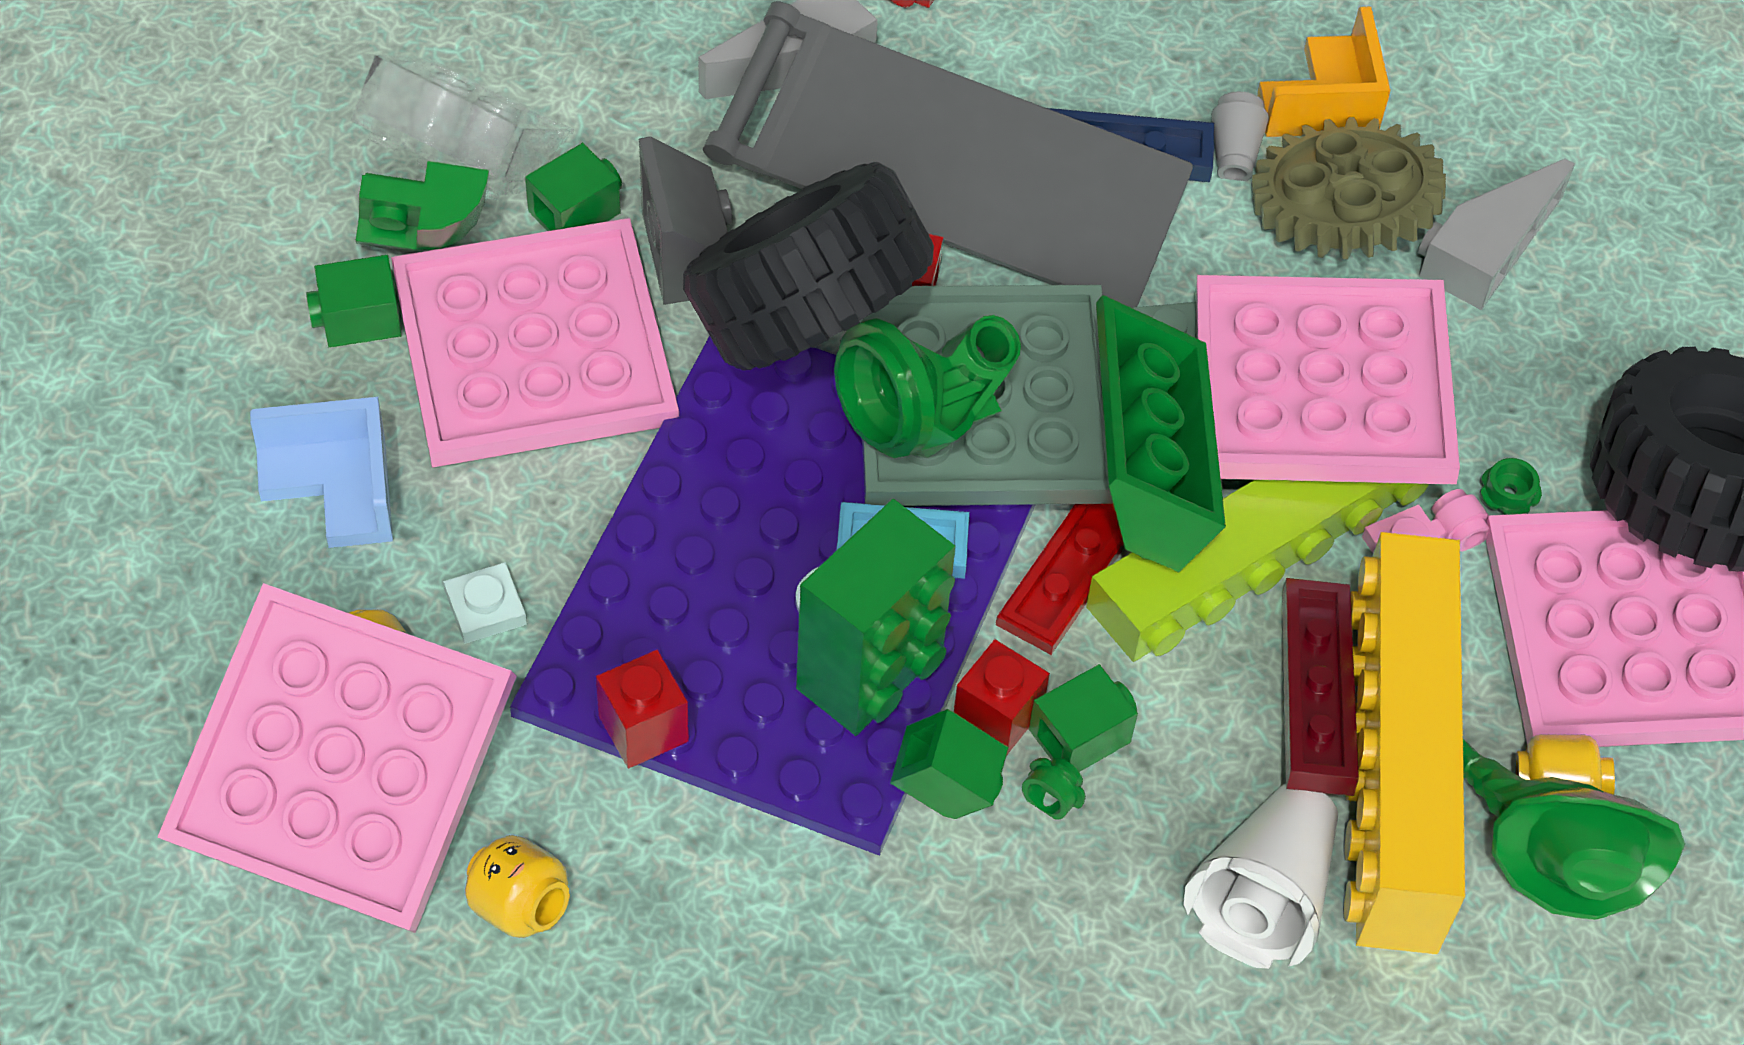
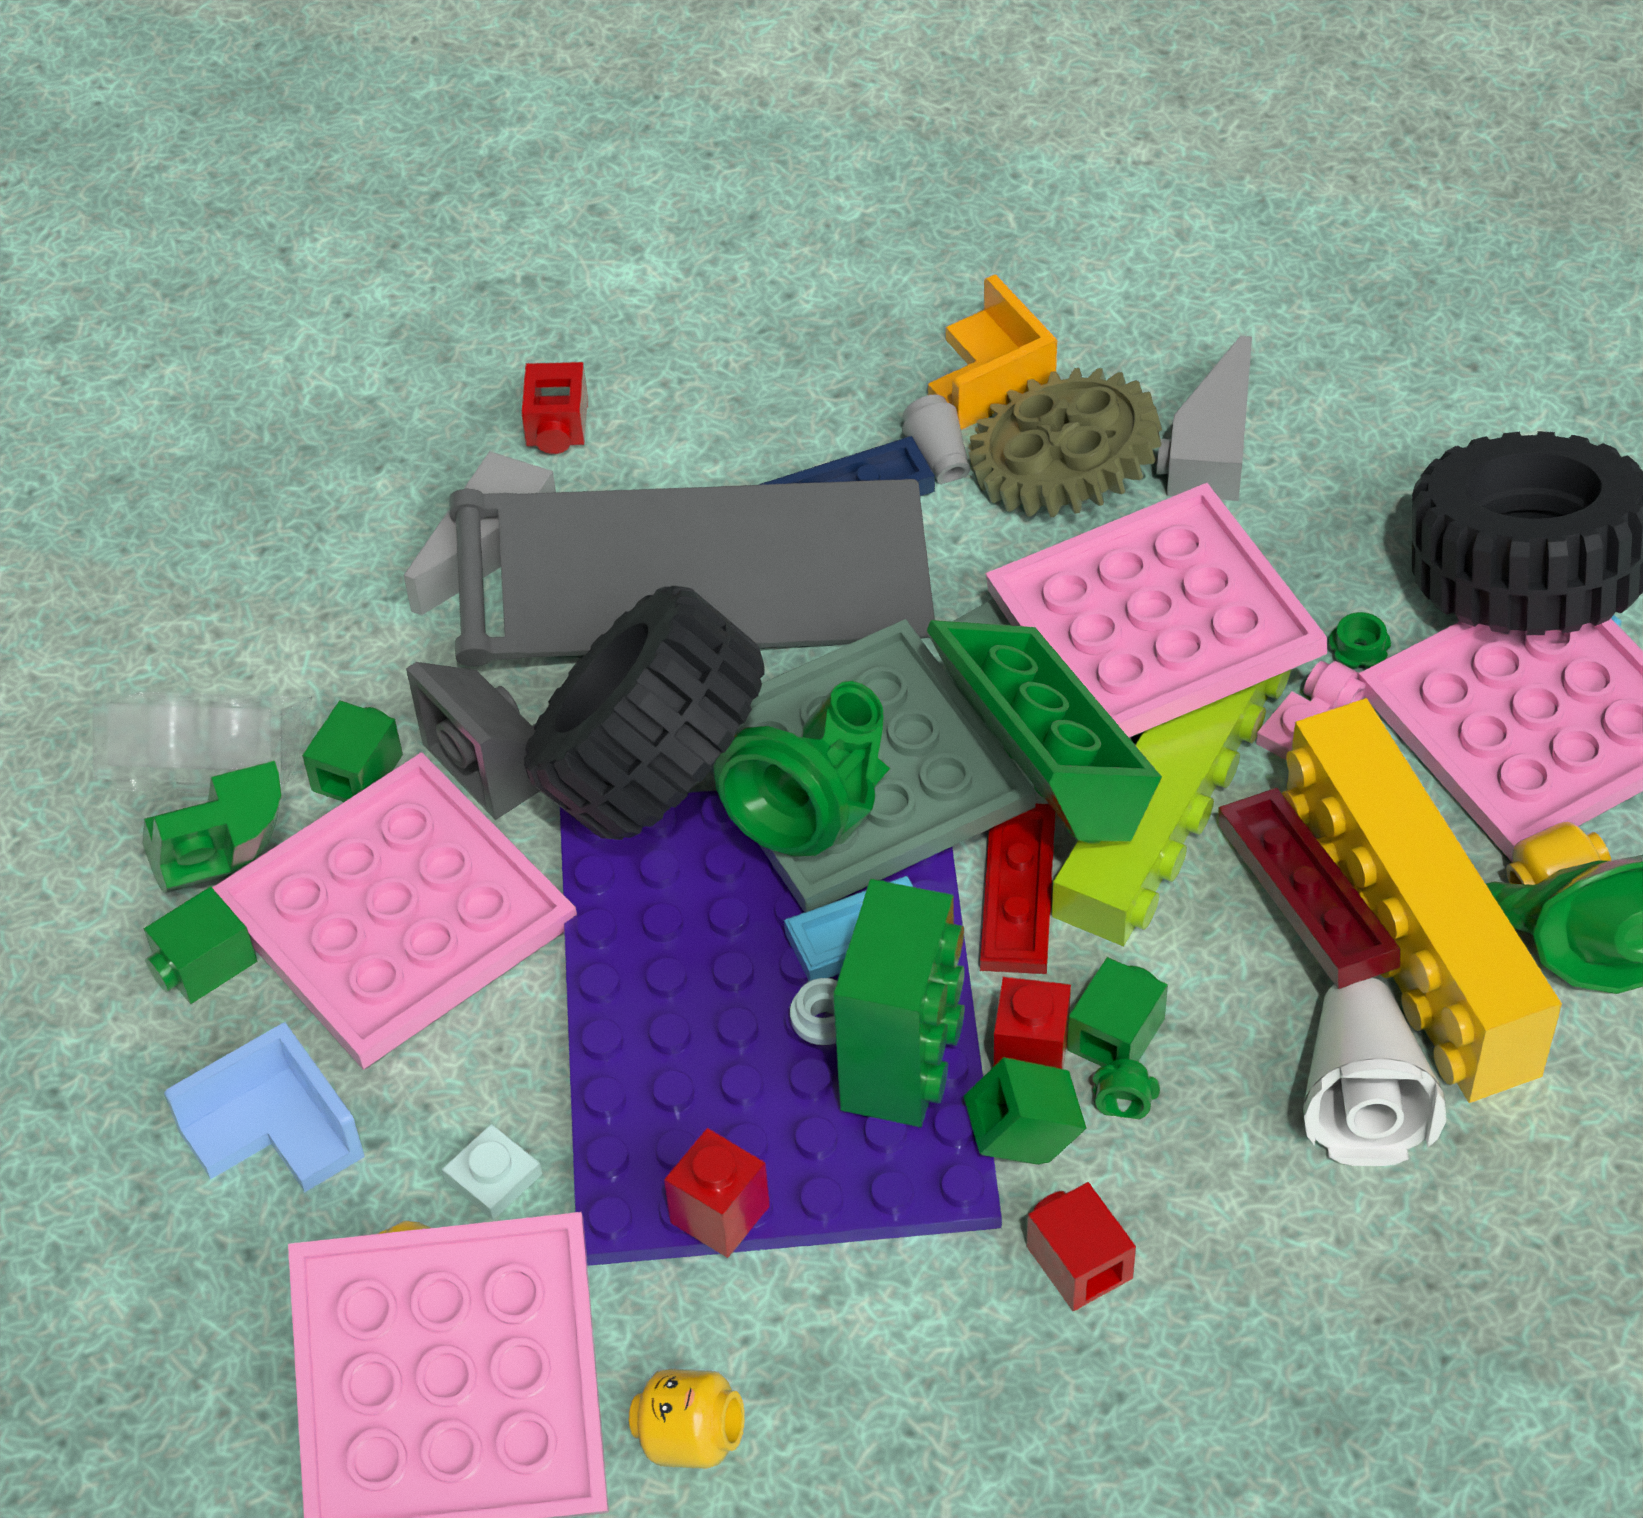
camera: 20 degrees left, 5 degrees down
(930, 902) = (1080, 1245): none -> red brick

